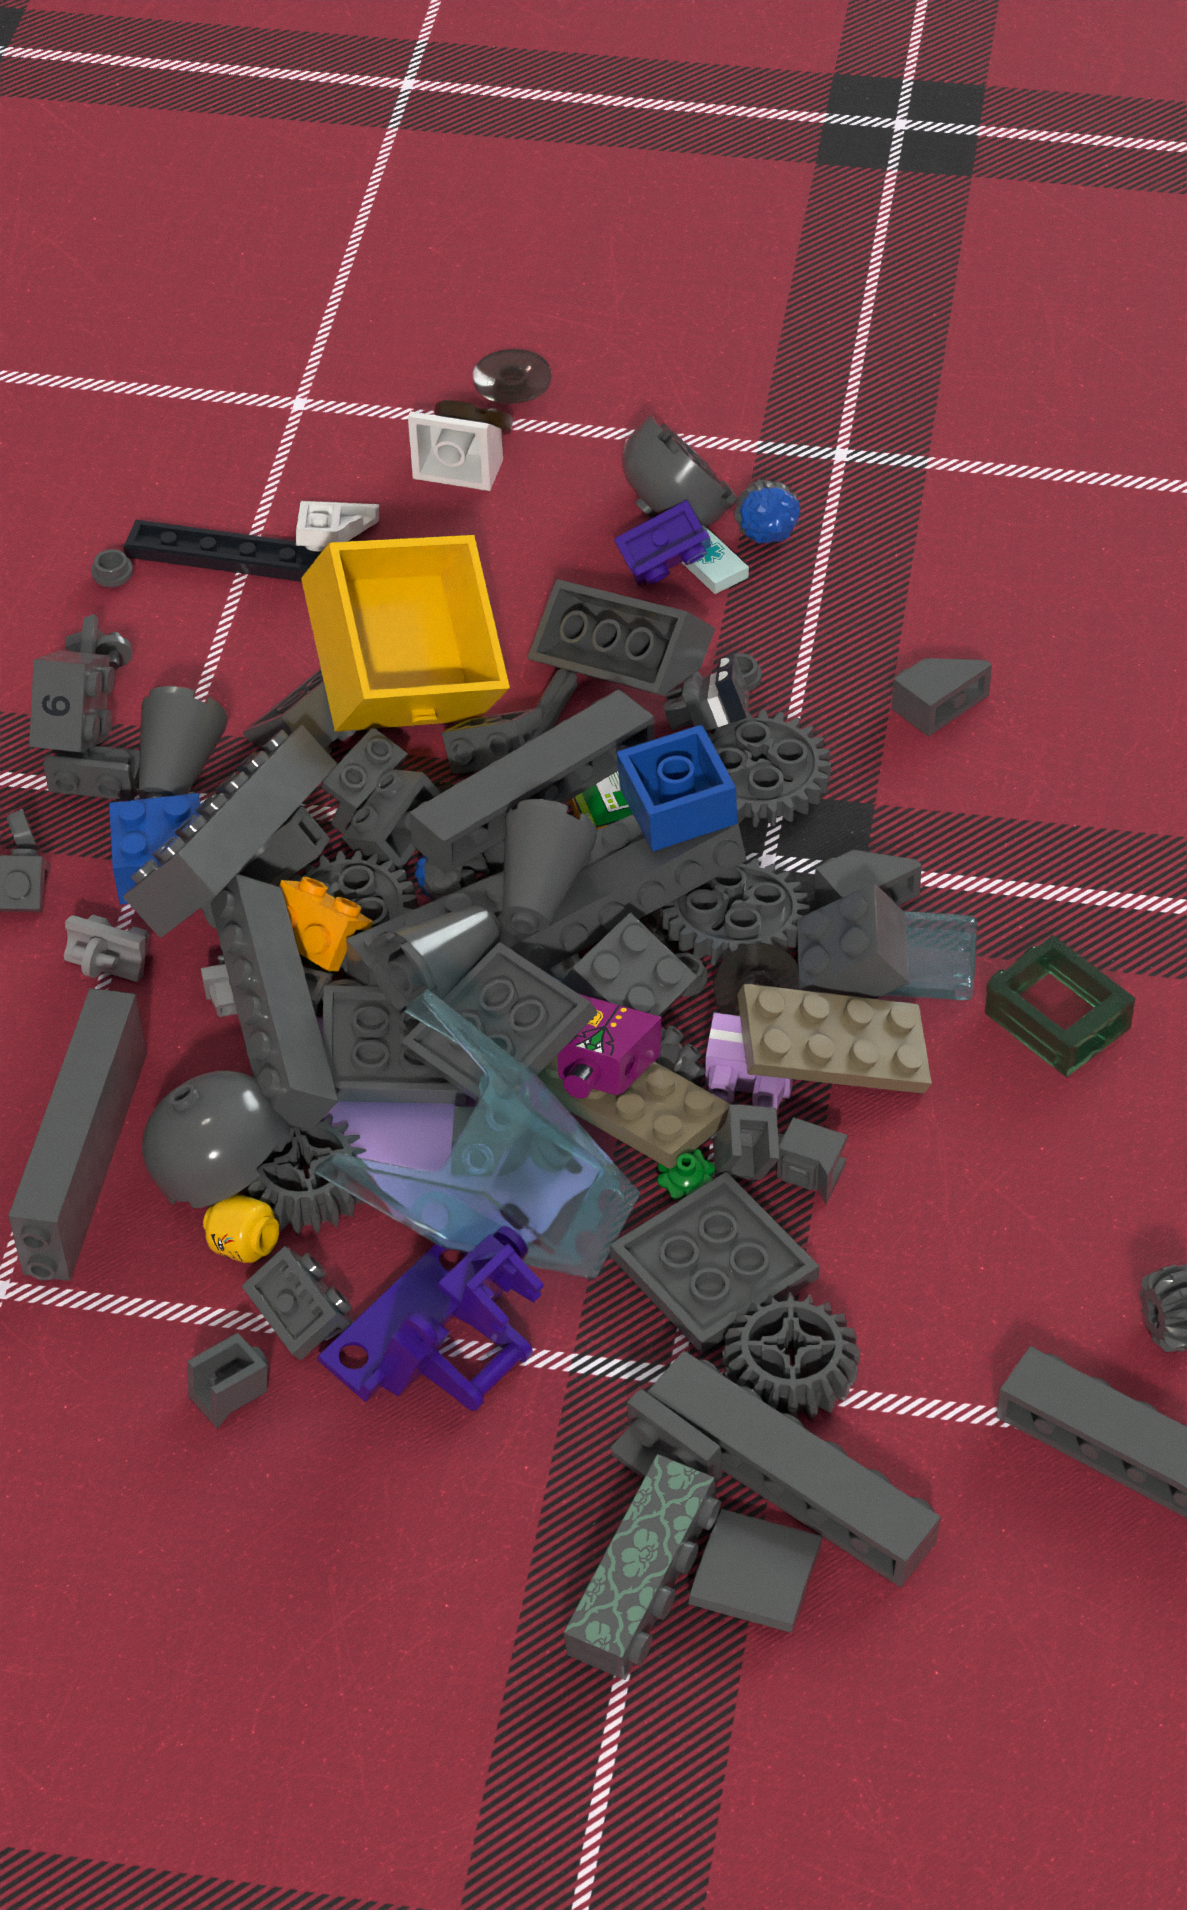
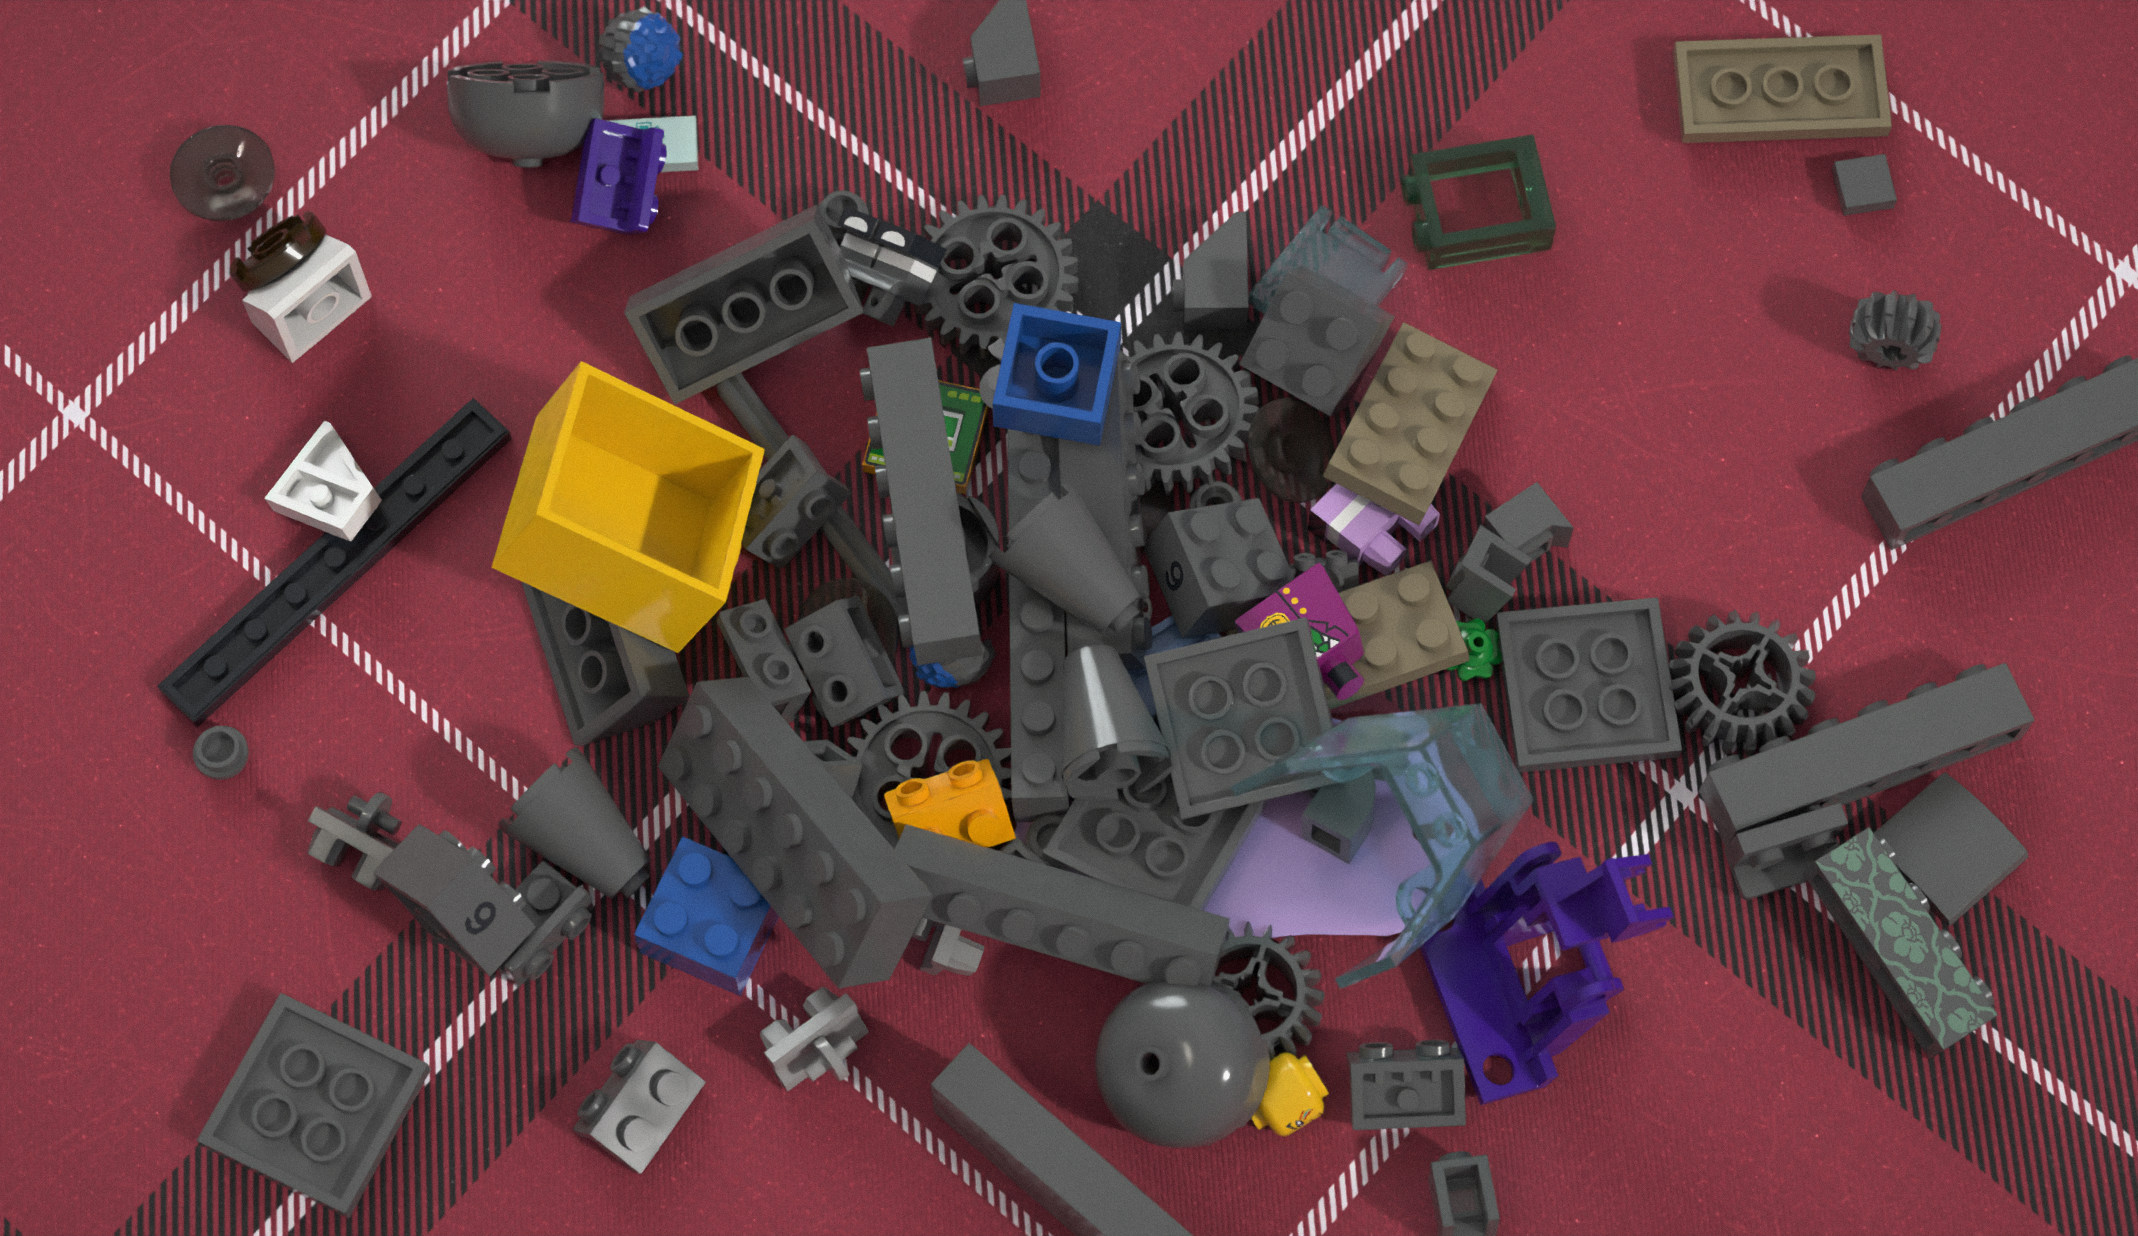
camera: 60 degrees left, 20 degrees up
(21, 830) = (583, 1045): dark grey tile -> none

